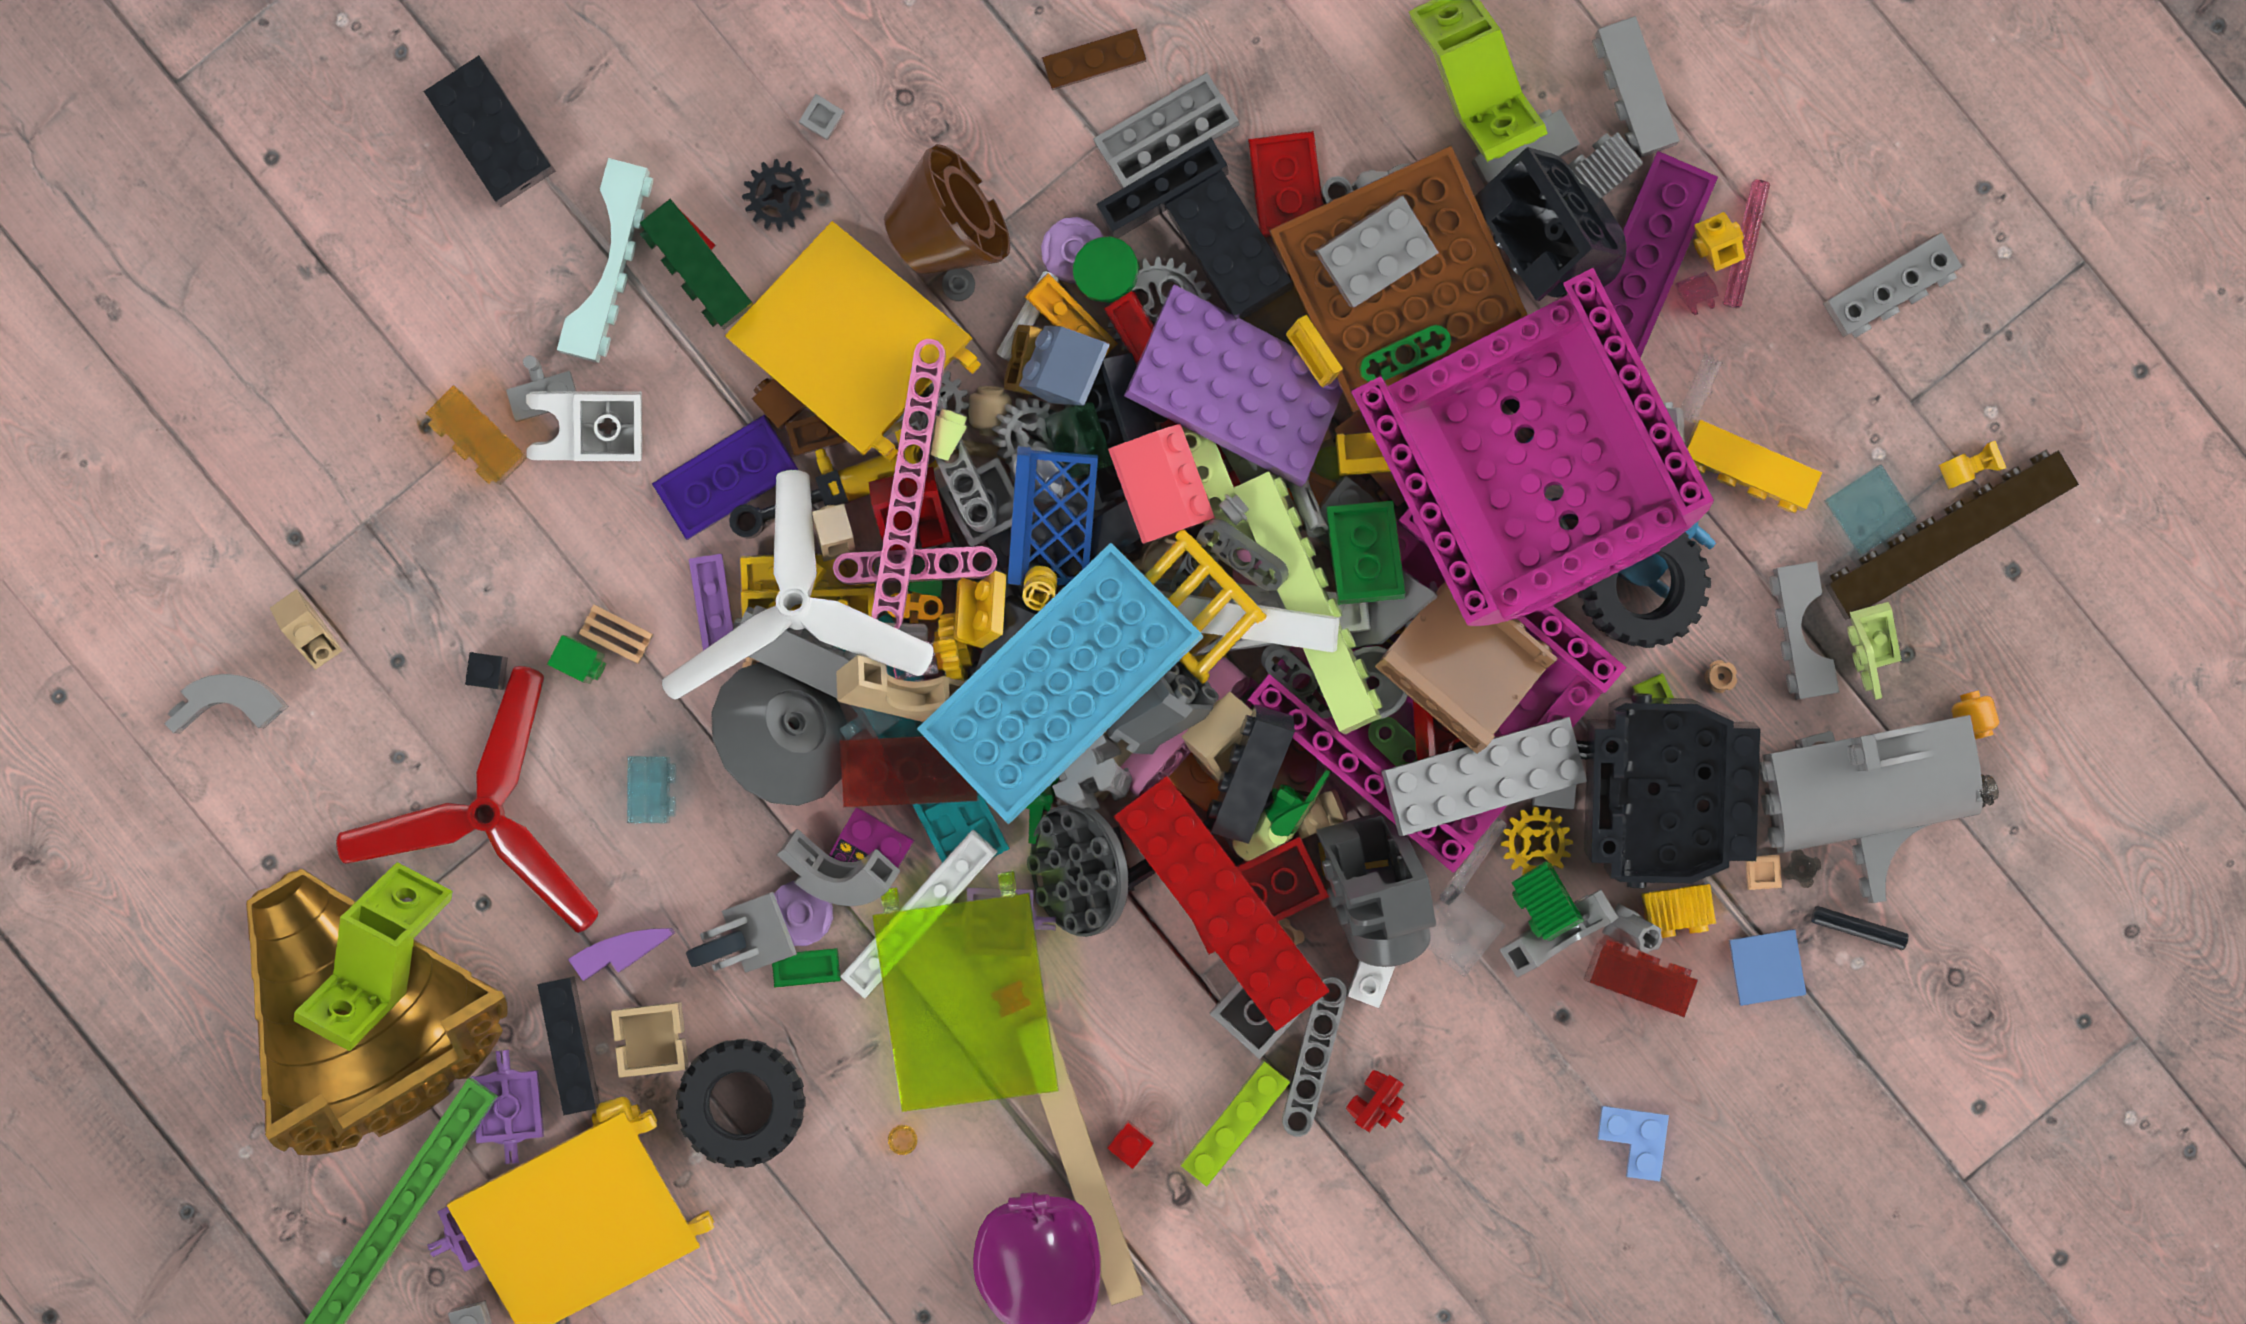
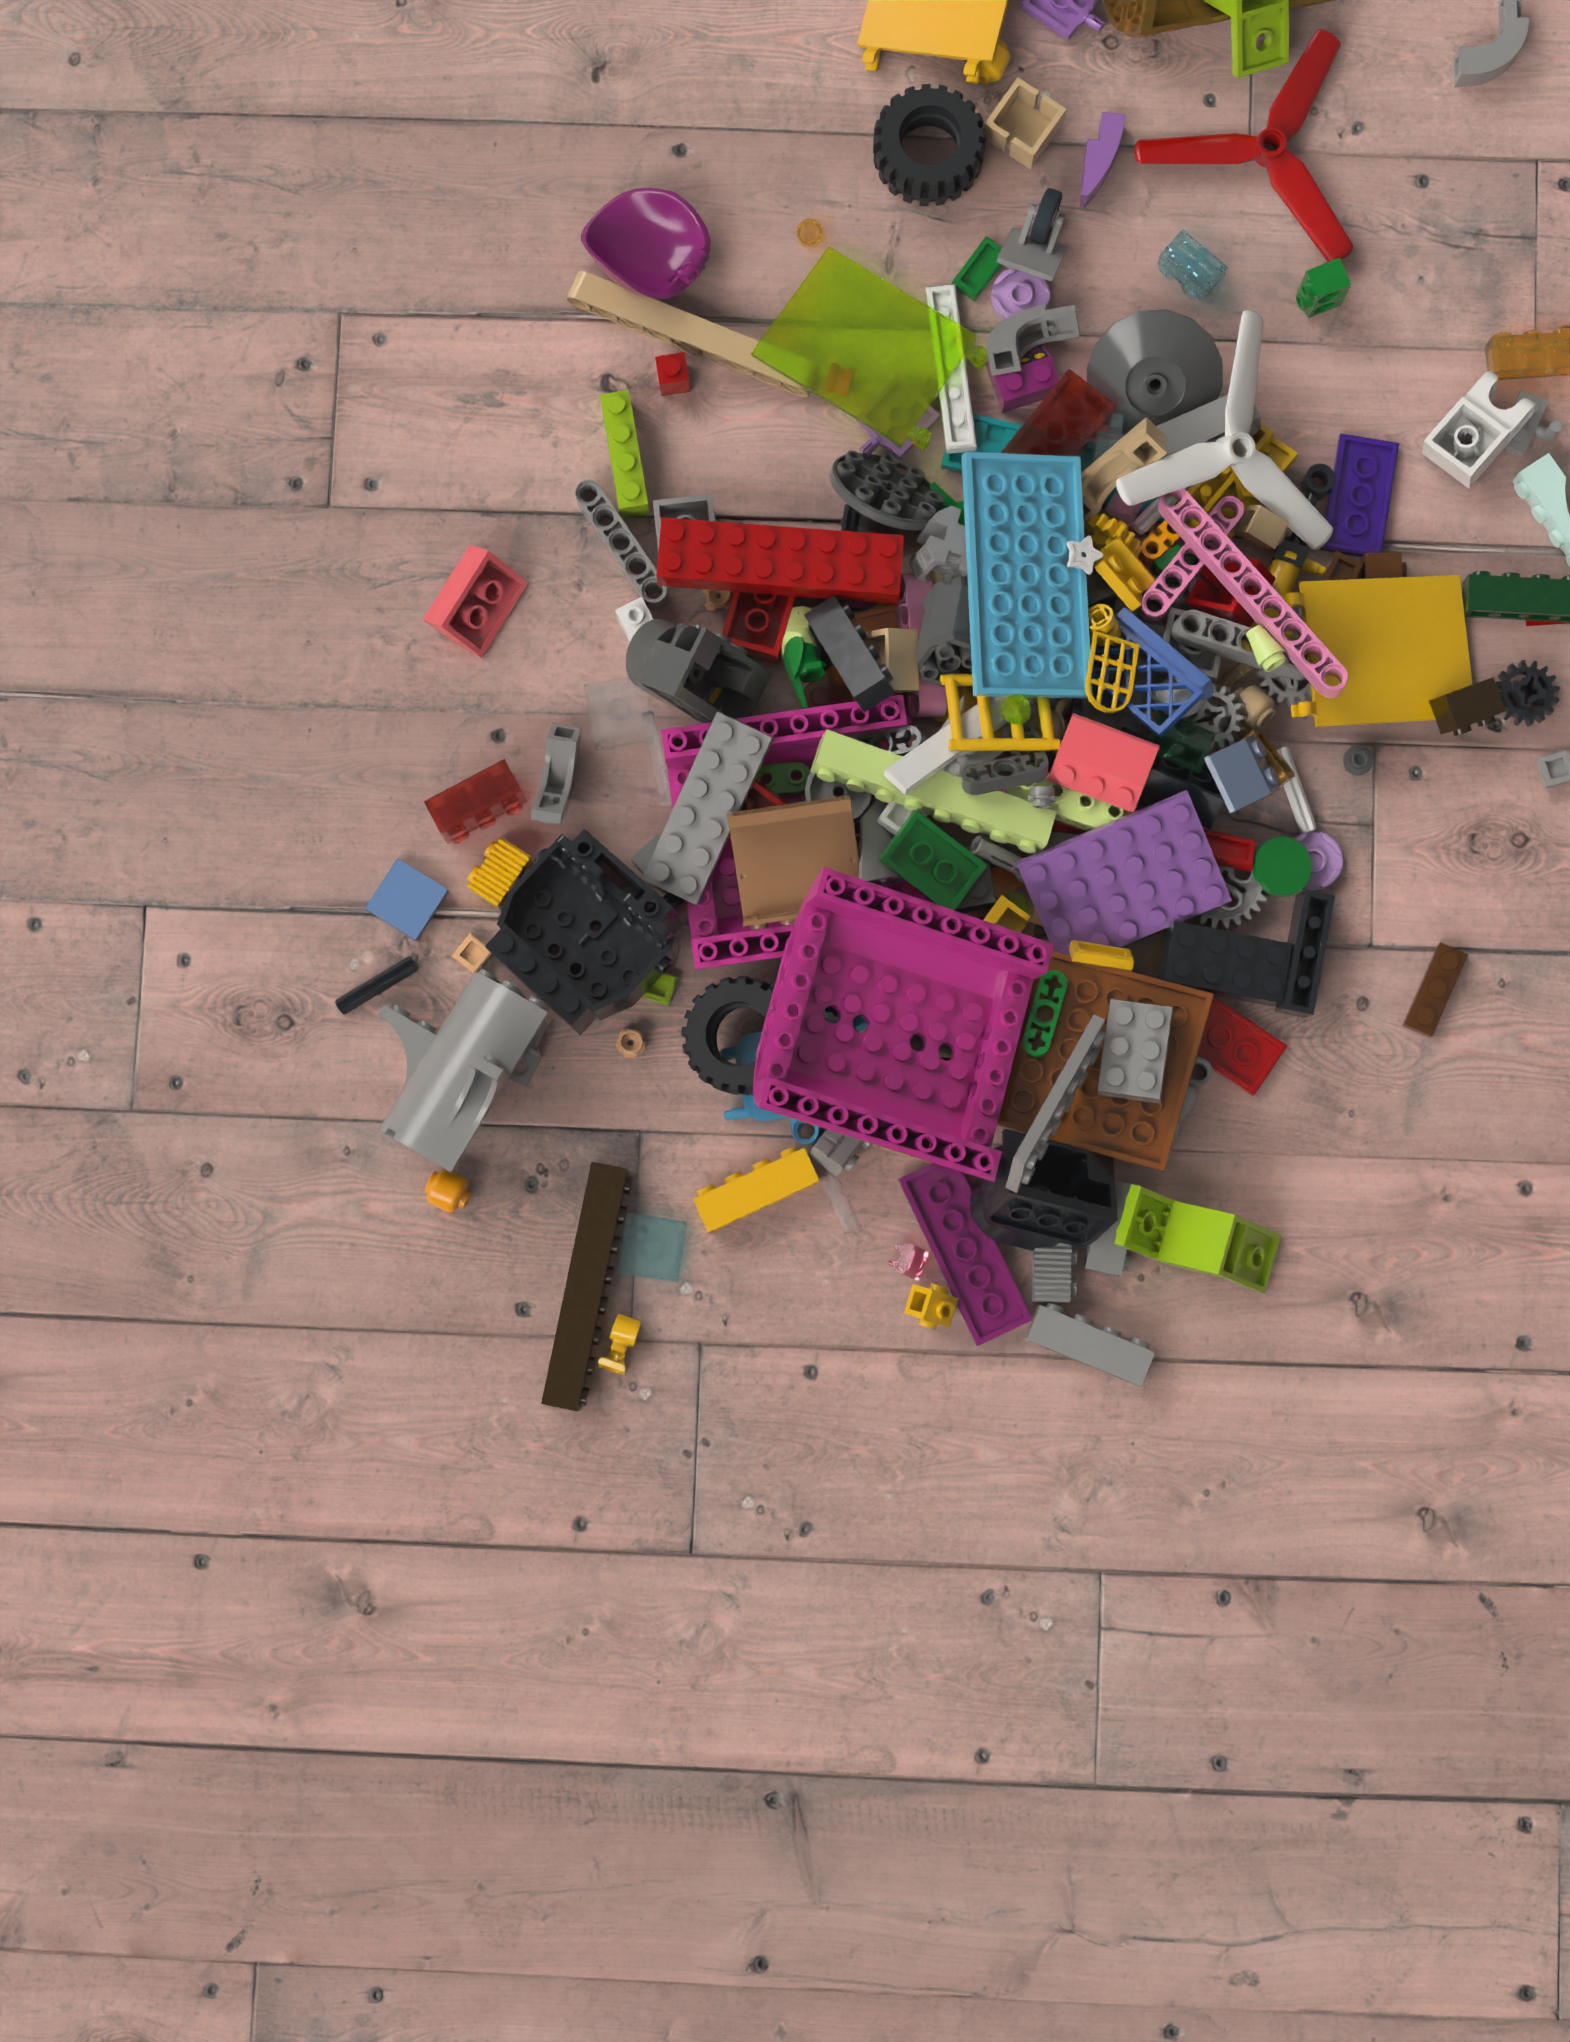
camera: 130 degrees right, 5 degrees down
(305, 629) = (1499, 135): tan slope -> none
(486, 671) = (1367, 226): black brick -> none
(569, 1045) = (1066, 70): black brick -> none
(590, 621) = (1338, 325): light nougat tile -> none
(711, 598) = (1287, 416): medium lavender plate -> none
(835, 232) = (1467, 706): none -> dark brown brick
(944, 217) = (1415, 788): reddish brown cone -> none
(1003, 660) = (1076, 559): none -> white plate
(1064, 310) = (1269, 815): light orange tile -> none
(1072, 555) = (1120, 667): none -> yellow window
(1166, 130) = (1343, 993): light grey brick -> none
(1183, 592) = (1015, 709): none -> clear neon green plate
(1324, 813) = (779, 692): tan bracket -> none
(1370, 1113) = (547, 560): red hips -> none
(1469, 1136) = (475, 600): none -> coral slope
(1492, 270) = (1057, 1102): none -> light grey plate
(1525, 832) = (644, 816): yellow gear -> none
(1546, 902) = (584, 781): green brick -> none
(1633, 930) = (513, 827): light grey piece -> none
(1643, 1132) = (374, 719): light blue plate -> none
(1750, 228) = (910, 1324): clear pink axle -> none
(1810, 672) = (577, 1105): light grey arch -> none
(1811, 866) = (444, 977): clear smoke plate -> none
(1875, 643) = (559, 1164): yellowish green bracket -> none
(1892, 285) = (793, 1401): light grey brick -> none
(1990, 790) = (392, 1151): clear smoke plate -> none

